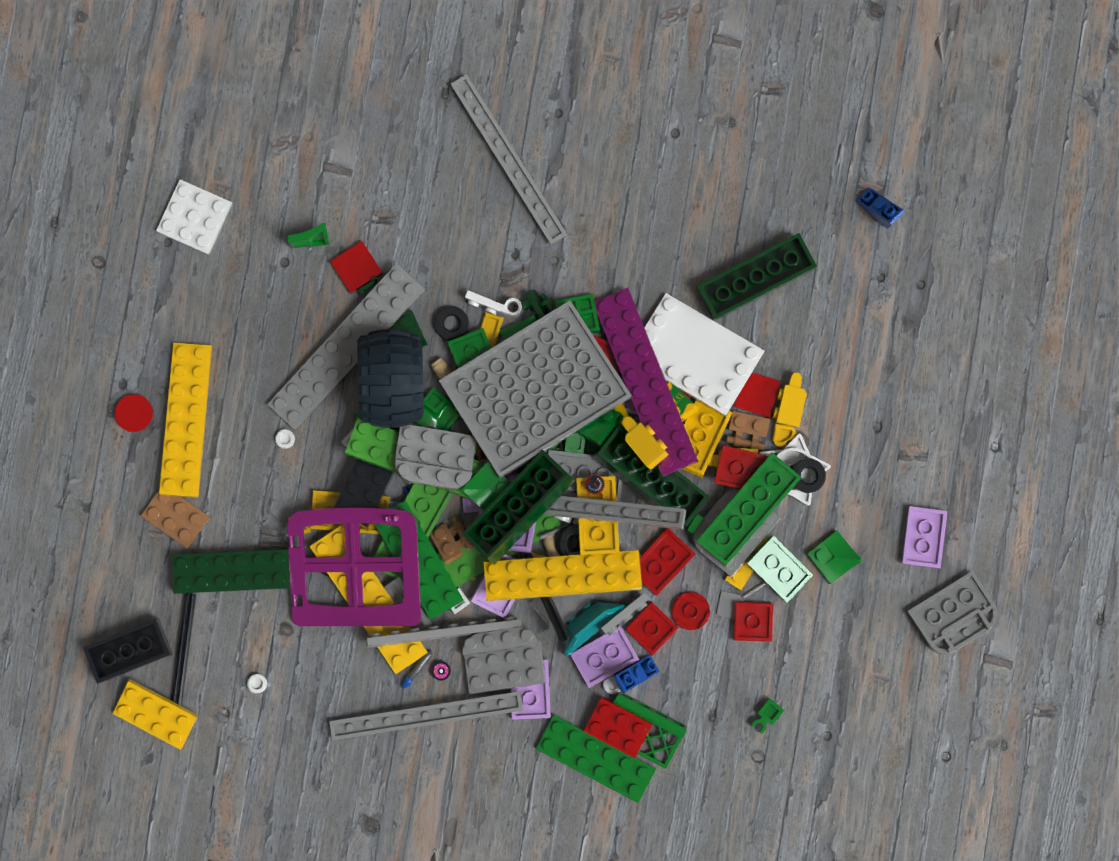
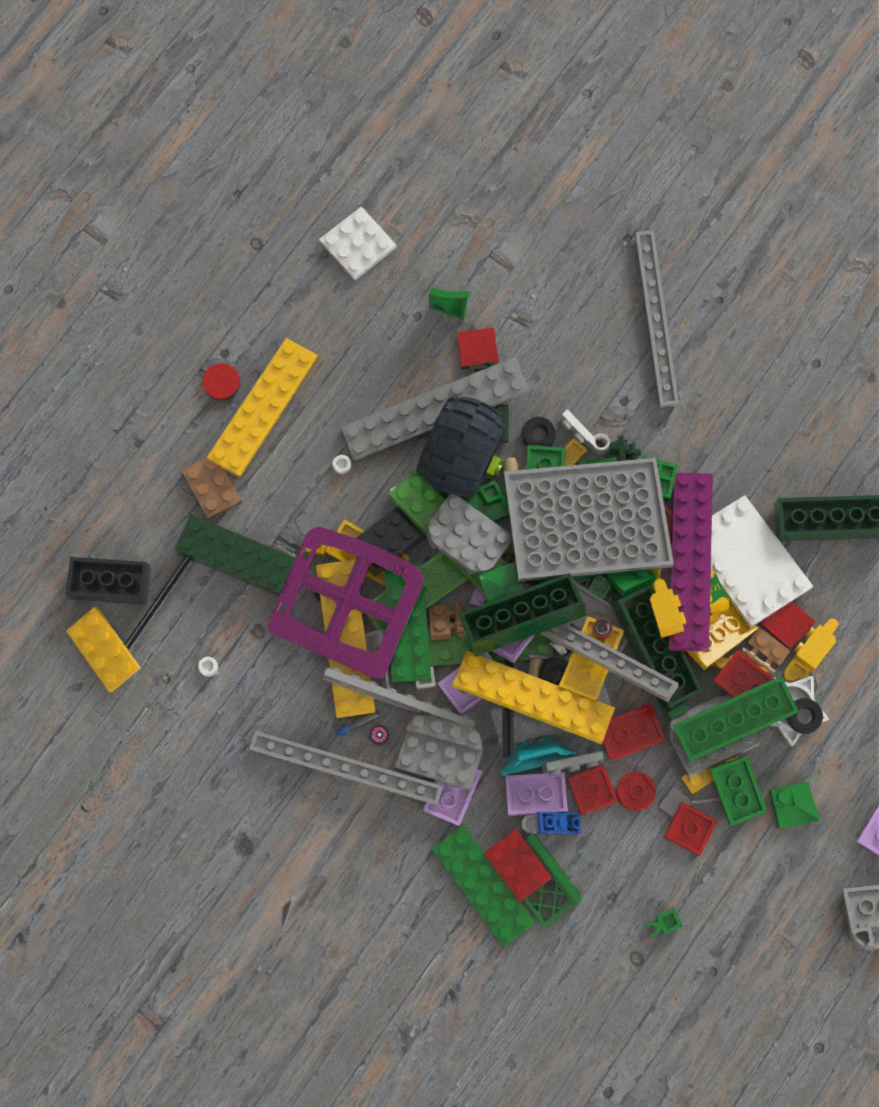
camera: 30 degrees right, 10 degrees down
(428, 376) = (494, 468): none -> lime plate

